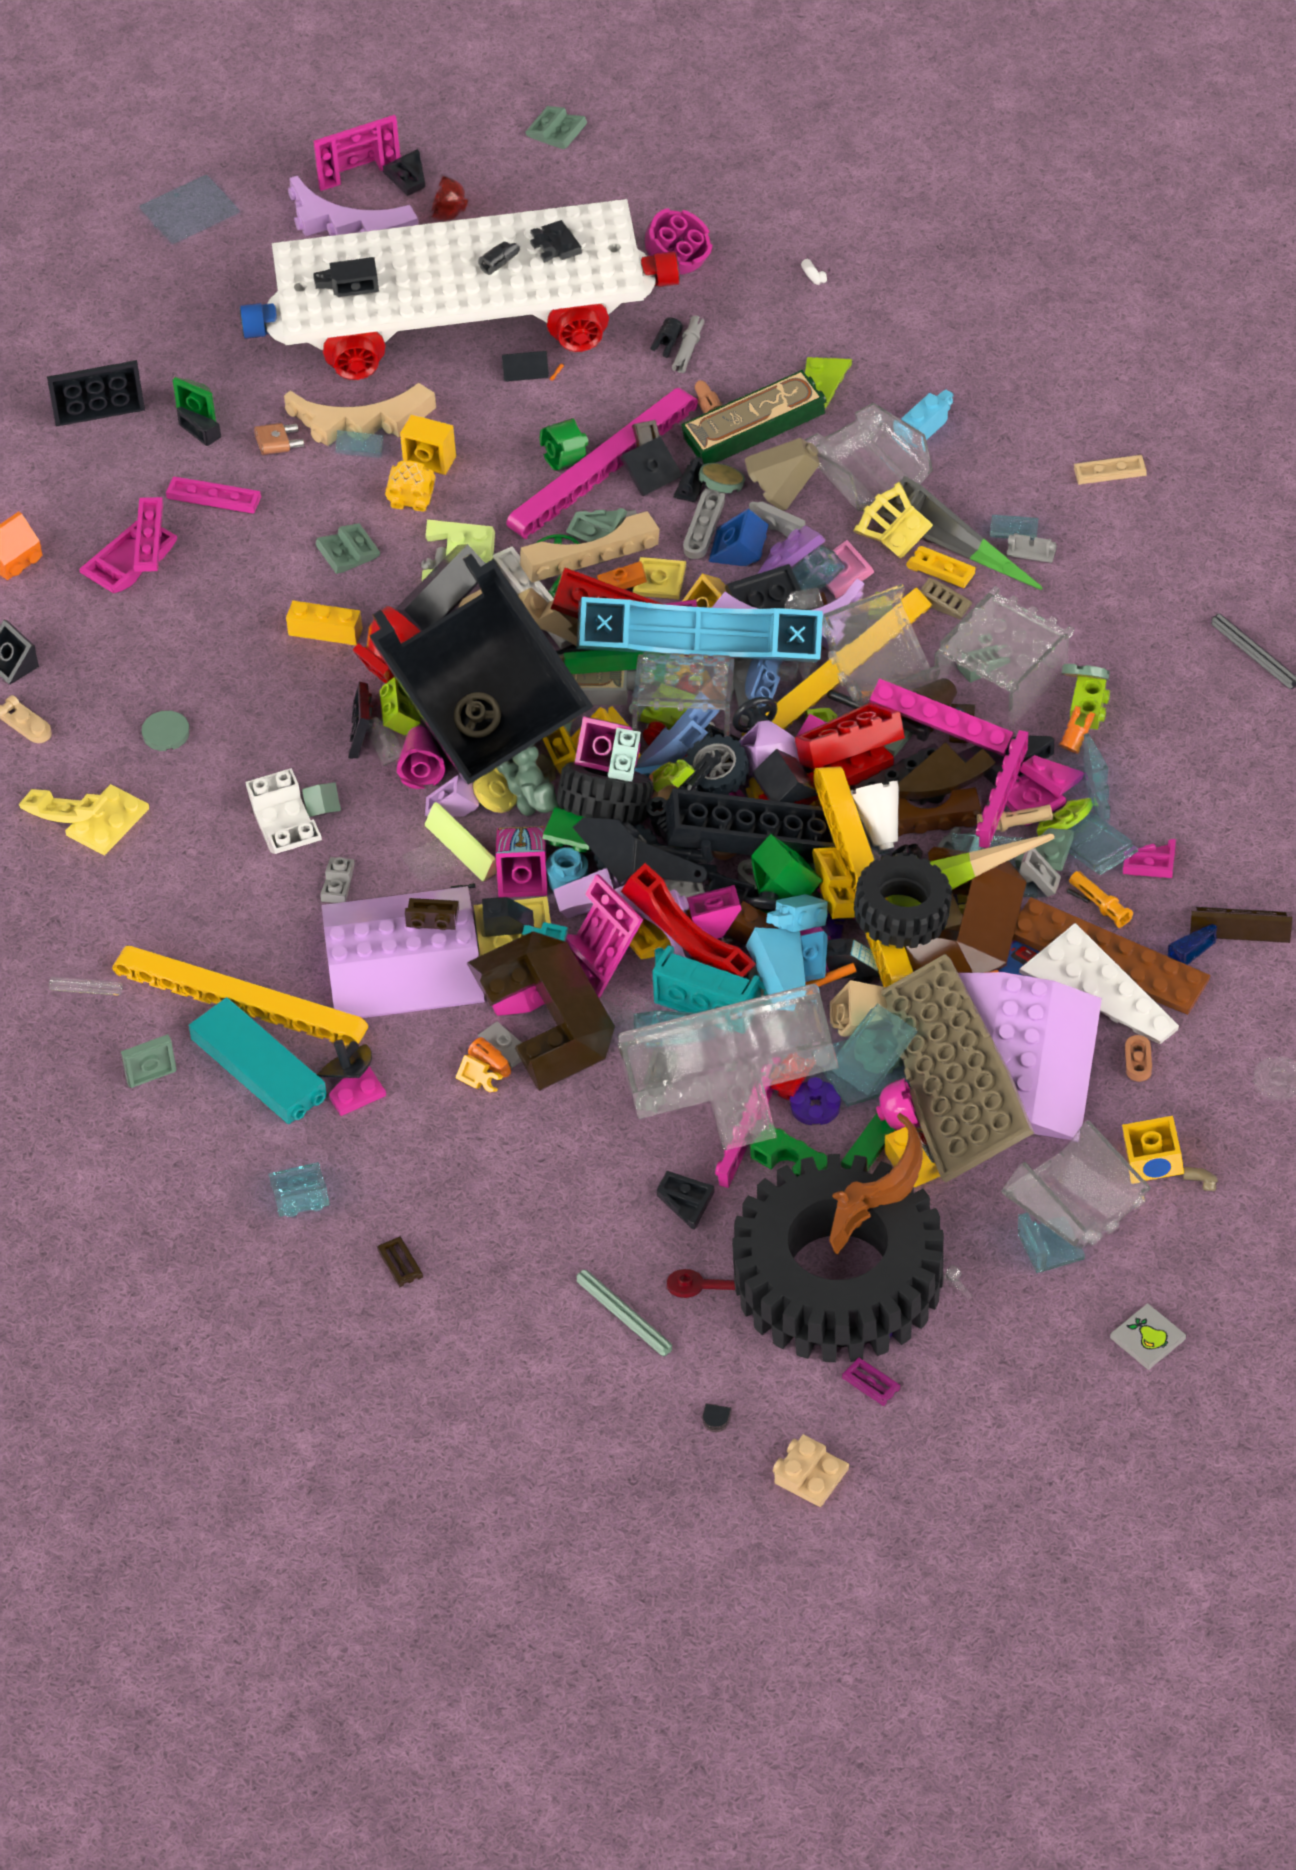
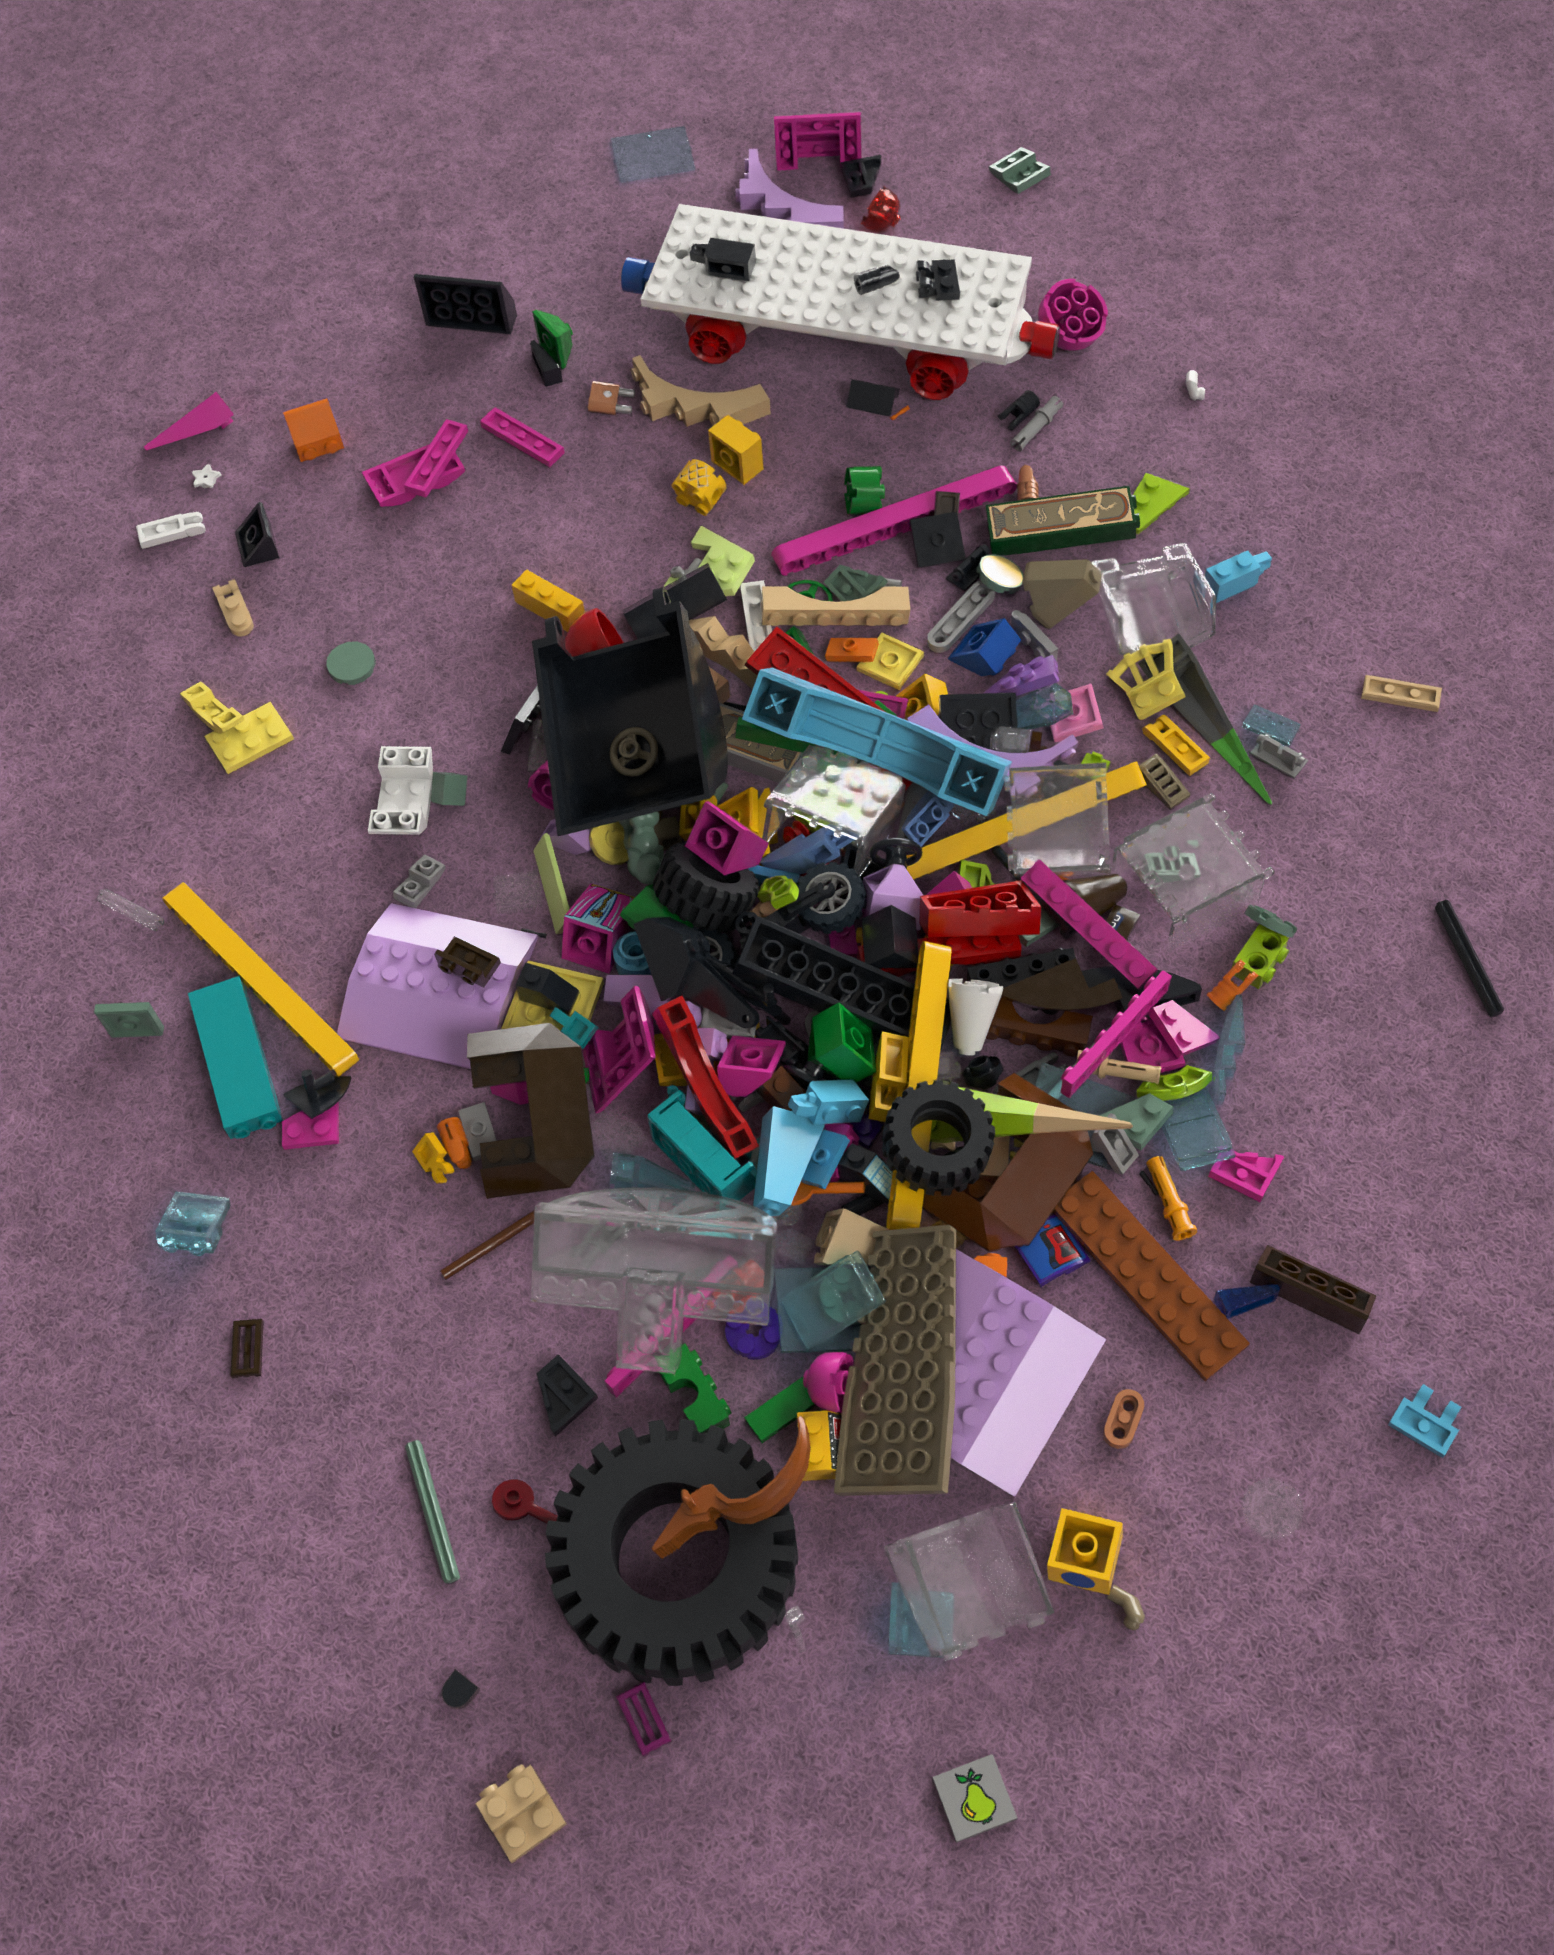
camera: 25 degrees right, 10 degrees up
(347, 548) = (614, 530): sand green slope -> none
(359, 443) = (678, 428): clear light blue plate -> none
(562, 1120) = (488, 1245): none -> reddish brown bar
(624, 754) = (728, 858): light aqua slope -> none
(1083, 965) = (1112, 1298): white wing -> none

